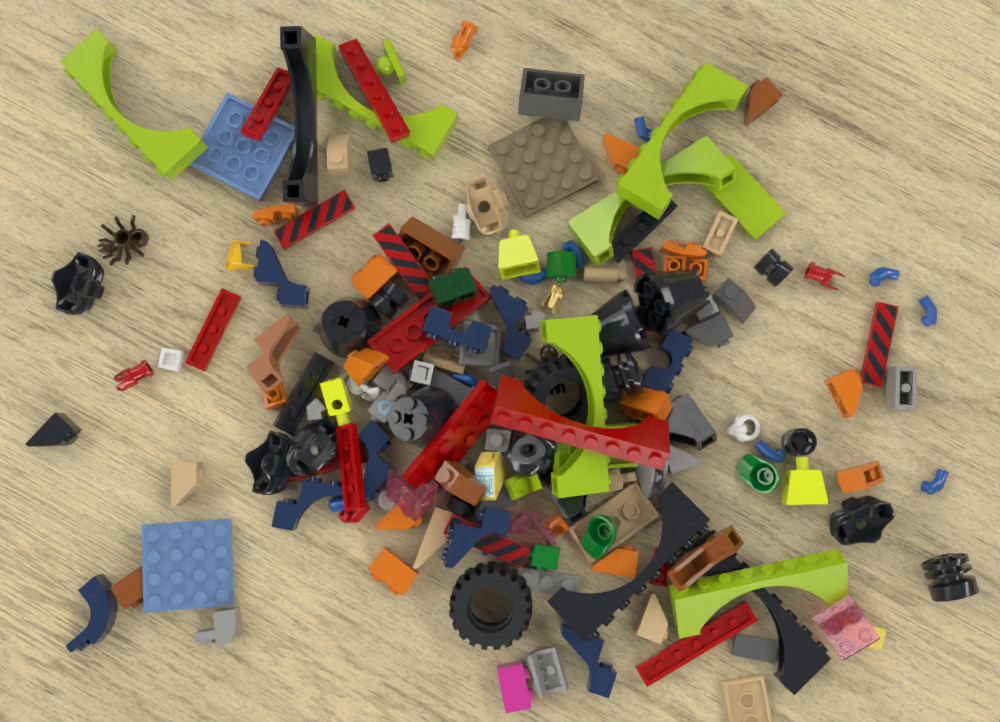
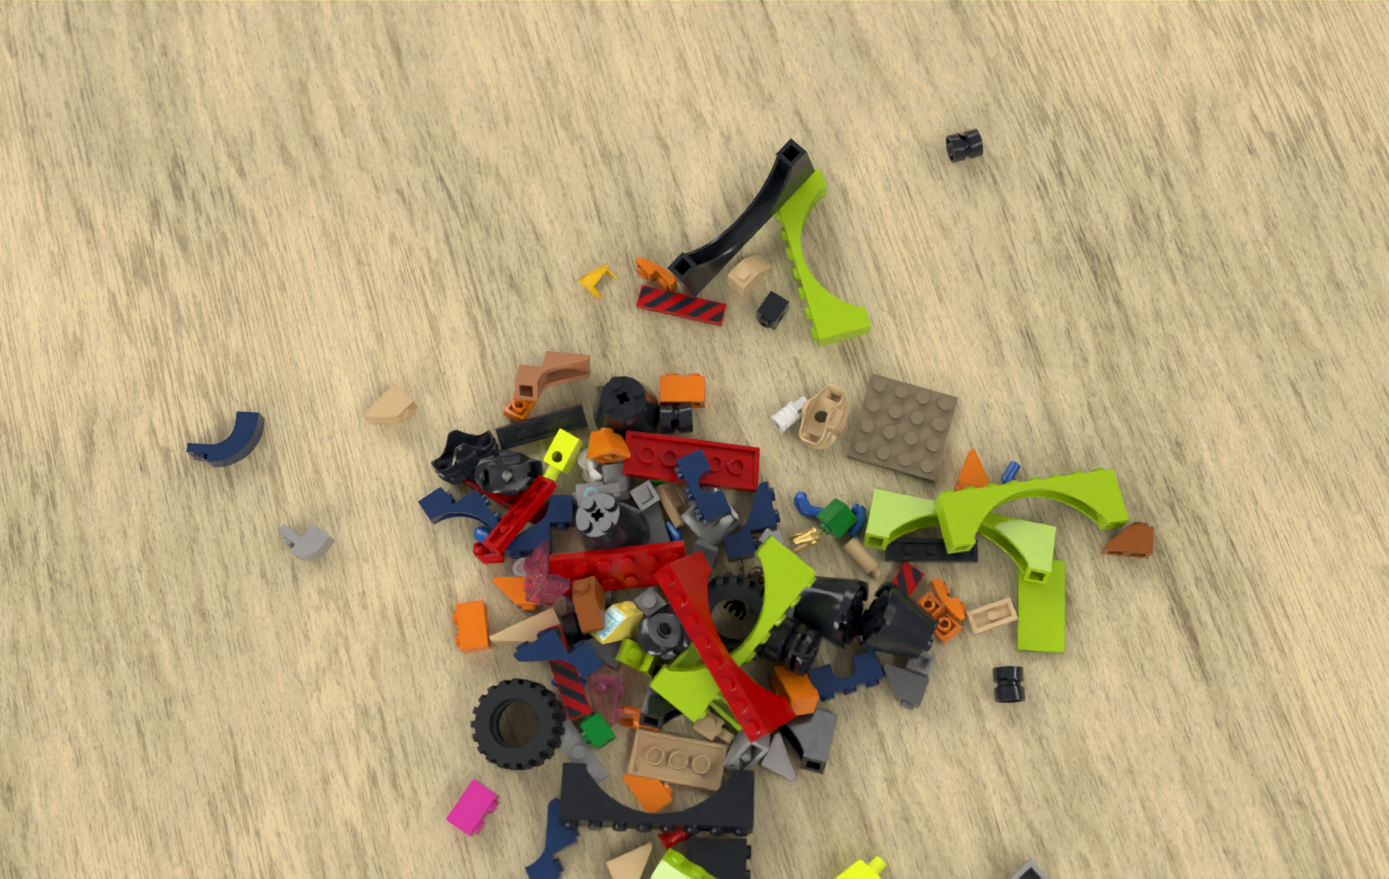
camera: 50 degrees right, 10 degrees down
(56, 431) = (337, 283): black slope -> none
(78, 284) = (461, 192): black piece -> none
(91, 66) = (628, 45): lime arch -> none
(123, 239) = (526, 189): dark brown animal -> none
(130, 589) = (278, 449): dark orange slope -> none
(133, 375) = (431, 294): red piece -> none
(170, 359) = (471, 309): white tile -> none
(187, 565) = (330, 471): medium blue plate -> none
(213, 329) = (524, 316): red tile -> none
(239, 159) = (682, 203): medium blue plate -> none
(267, 105) = (729, 188): red tile -> none
(271, 273) = (608, 314): dark blue arch -> none
(316, 410) = (537, 448): light grey piece -> none
(374, 90) = (822, 250): red plate -> none
(390, 63) = (857, 241): lime tile -> none
(403, 260) = (716, 399): tile -> none
(430, 248) = (742, 408): dark orange slope -> none
(452, 288) = (732, 453): dark green brick -> none
(462, 39) = (930, 275): orange piece -> none
(517, 256) = (807, 478): neon yellow torso -> none
(547, 671) = (509, 822): light grey bracket -> none
(551, 94) = (959, 379): dark grey brick -> none
(598, 537) = (655, 755): green cap -> none
(701, 559) = (718, 851): dark orange arch -> none
(734, 300) = (950, 680): dark grey slope -> none
(739, 430) = (850, 784): white piece -> none
(755, 474) = (832, 837): green cap -> none
(768, 453) = (857, 830): blue arm -> none
(799, 442) = (890, 843): black wheel -> none
(821, 275) = (1045, 730): red piece -> none
(846, 391) = (973, 841): orange slope -> none
(878, 344) = (1039, 834): red tile -> none
(882, 273) = (1098, 778): blue arm -> none
(931, 311) = (1111, 850): blue arm -> none

